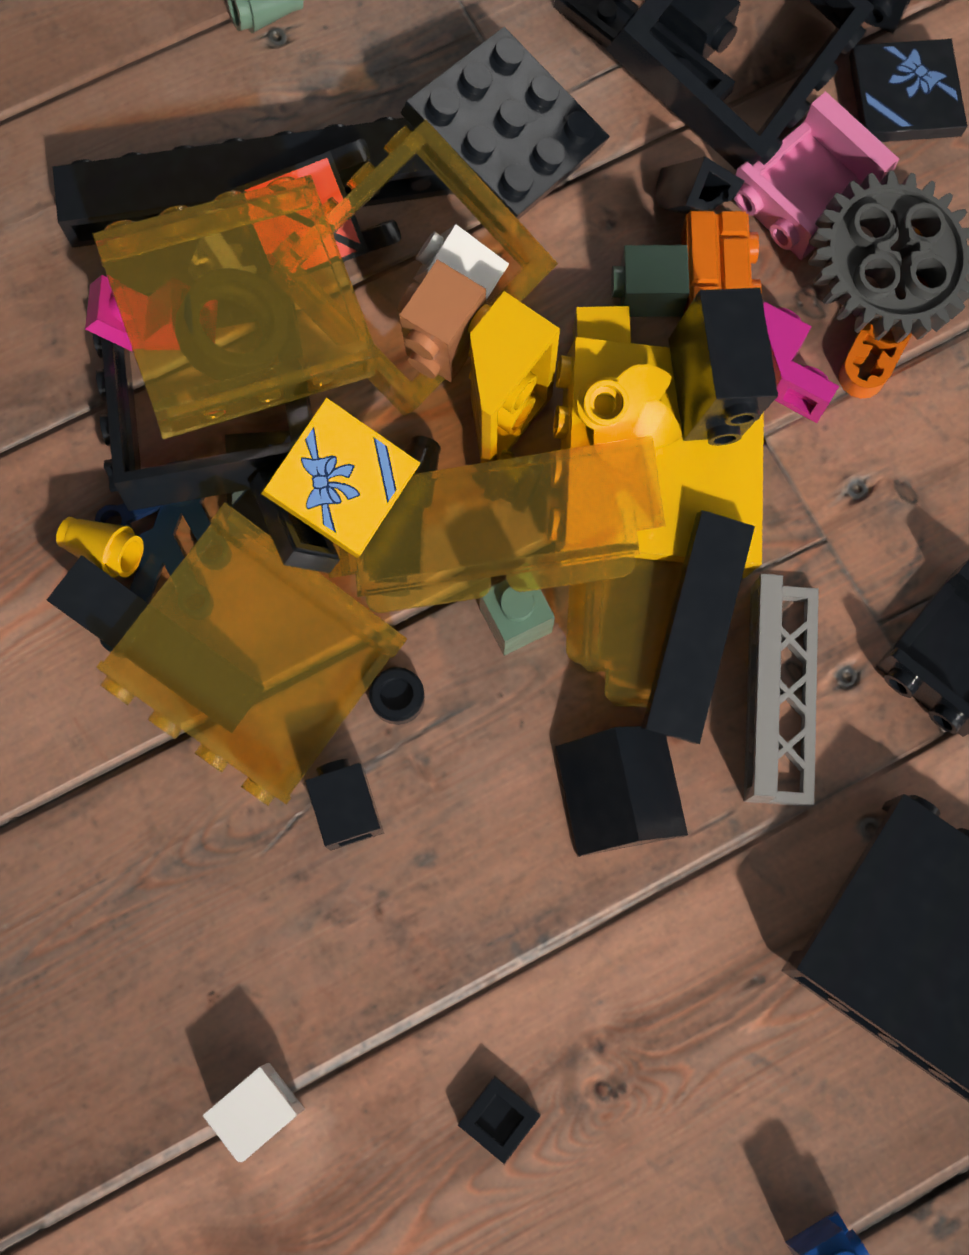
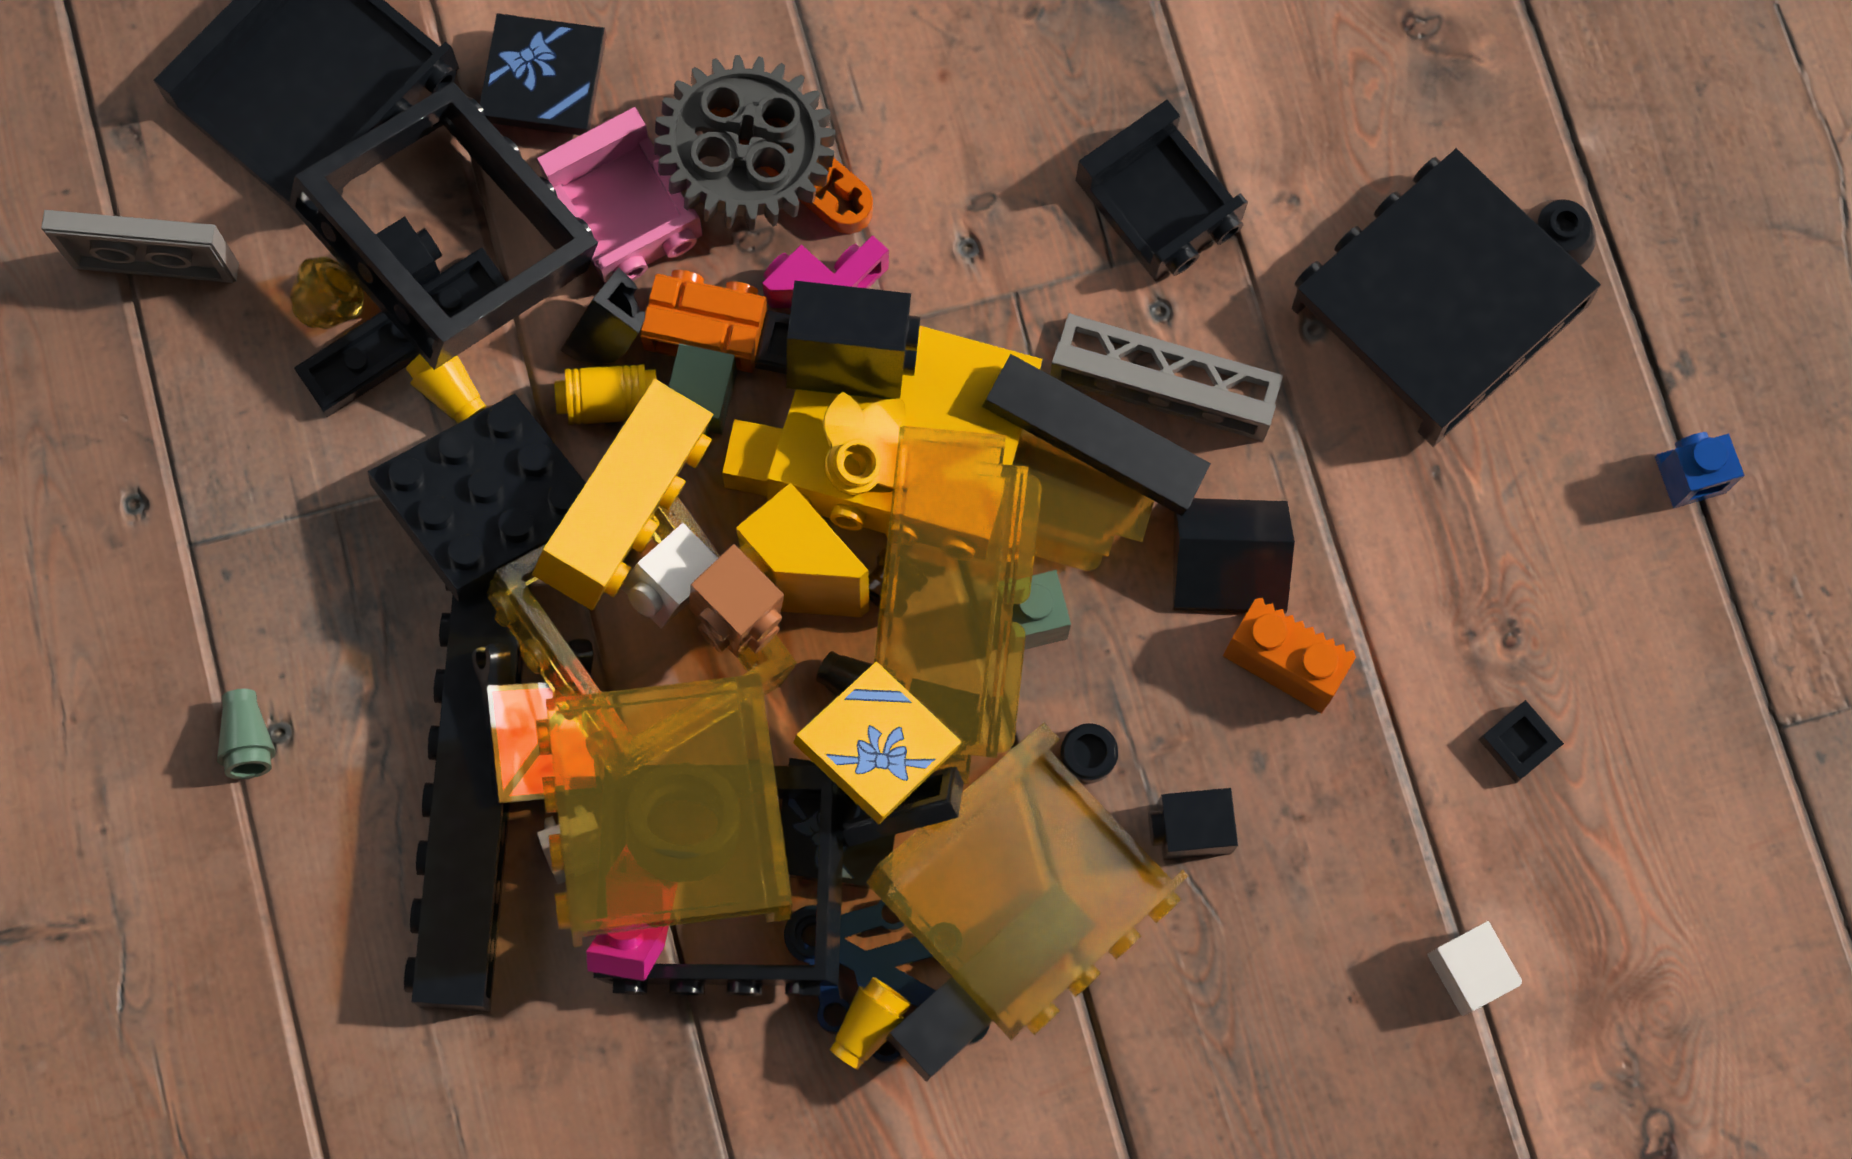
camera: 80 degrees left, 0 degrees up
(526, 215) = (622, 496): none -> yellow brick
(529, 862) = (1289, 655): none -> orange brick
(602, 82) = (447, 387): none -> yellow cone
(628, 204) = (601, 393): none -> yellow head

